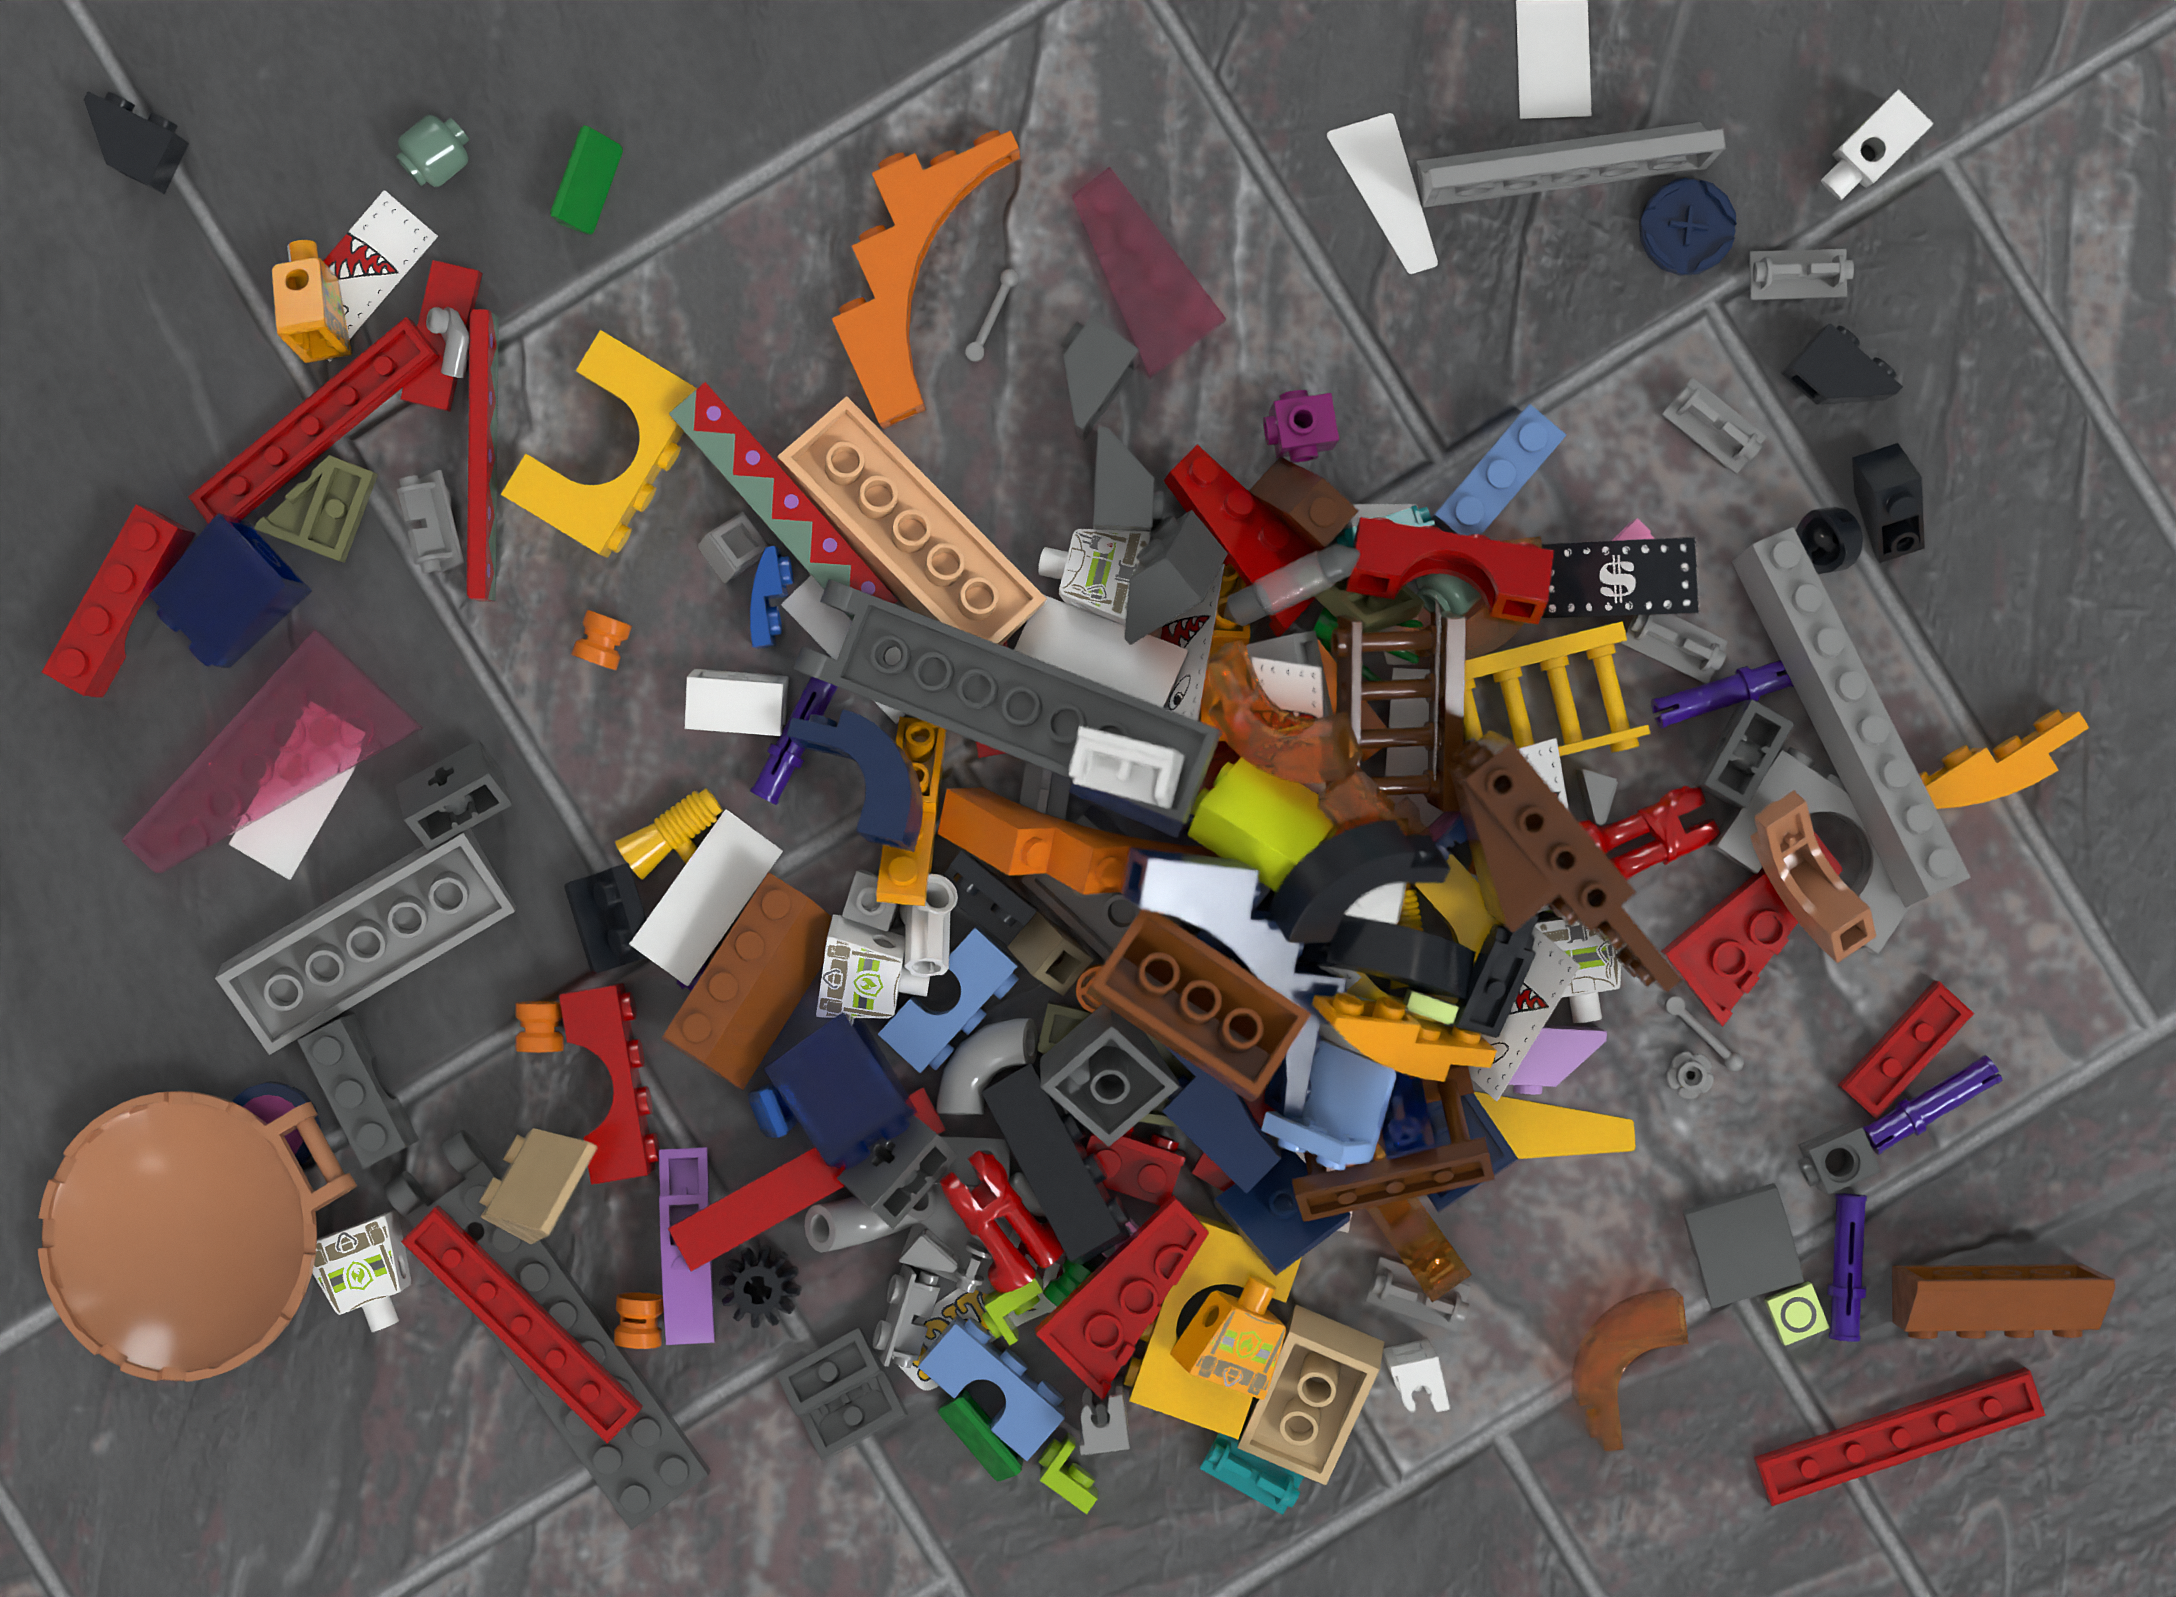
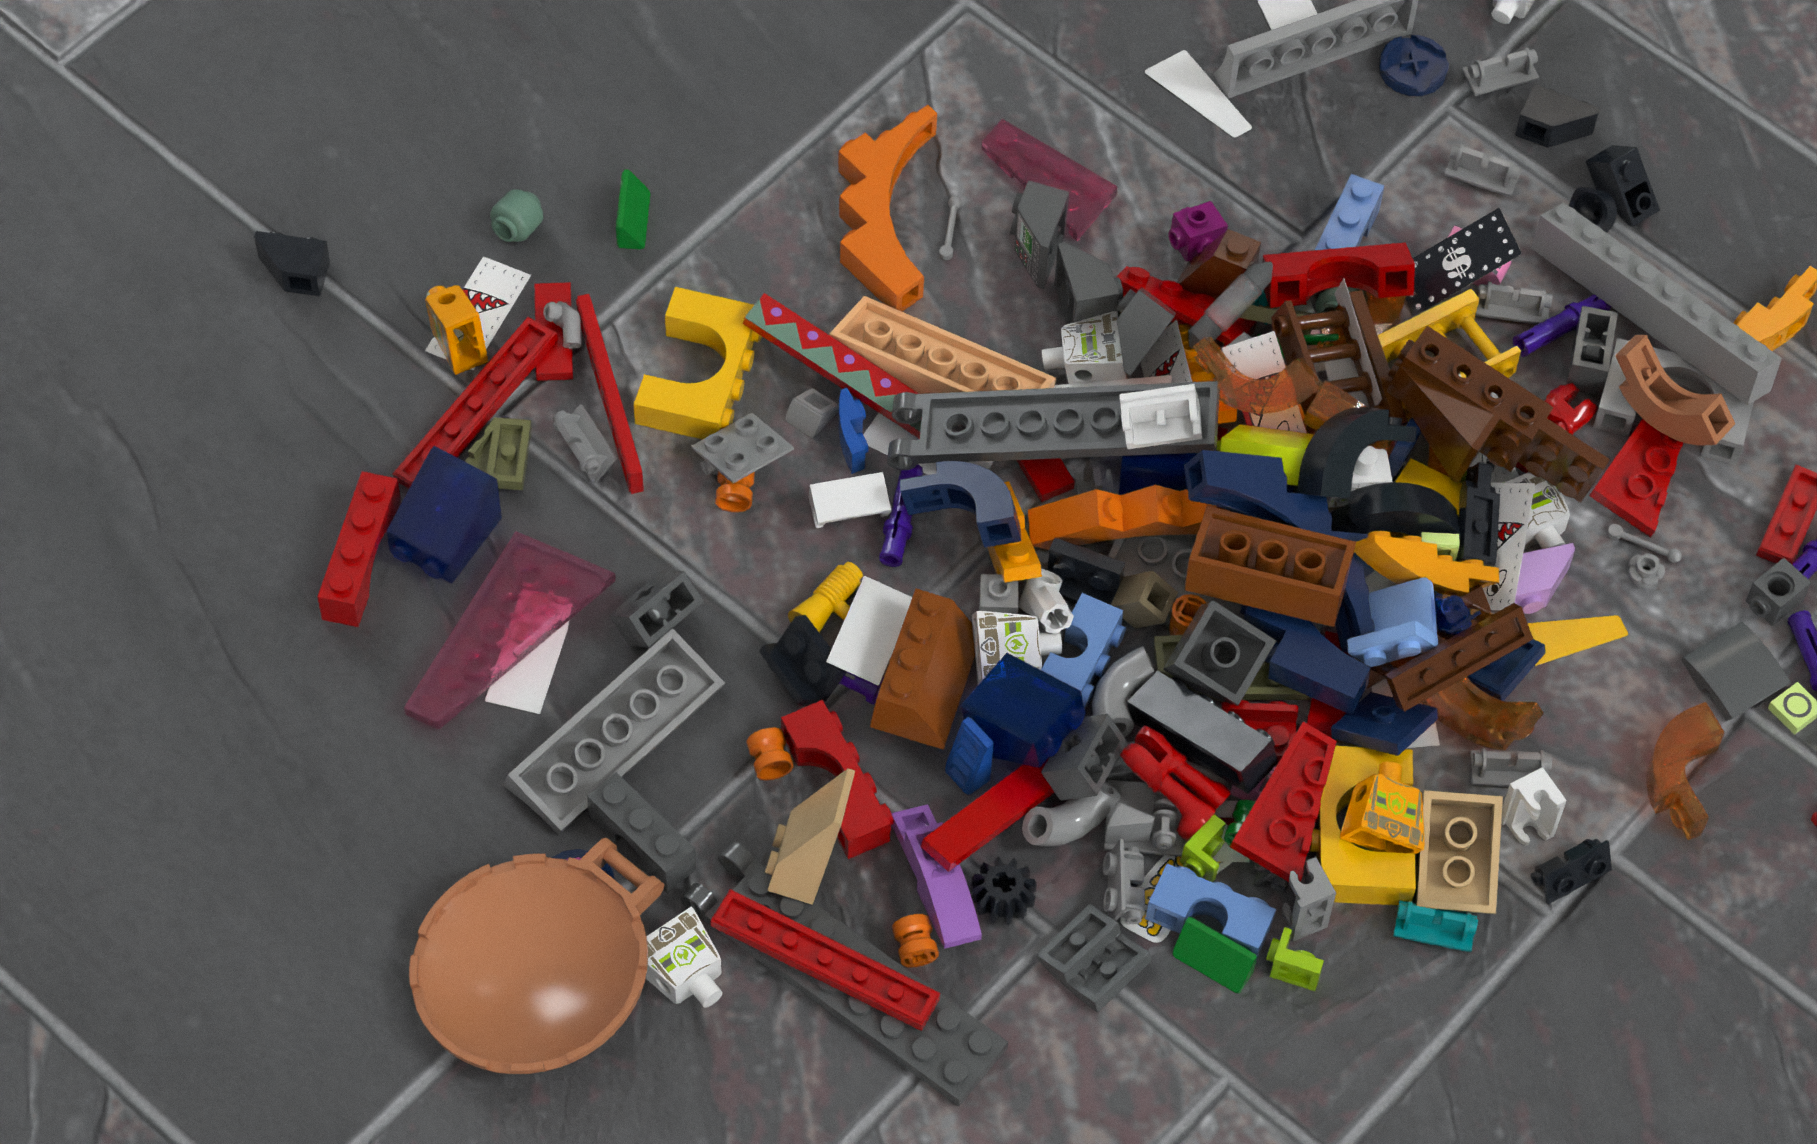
camera: 10 degrees left, 30 degrees down
(620, 596) = (741, 448): none -> light grey hinge
(1459, 1445) = (1584, 864): none -> black hinge

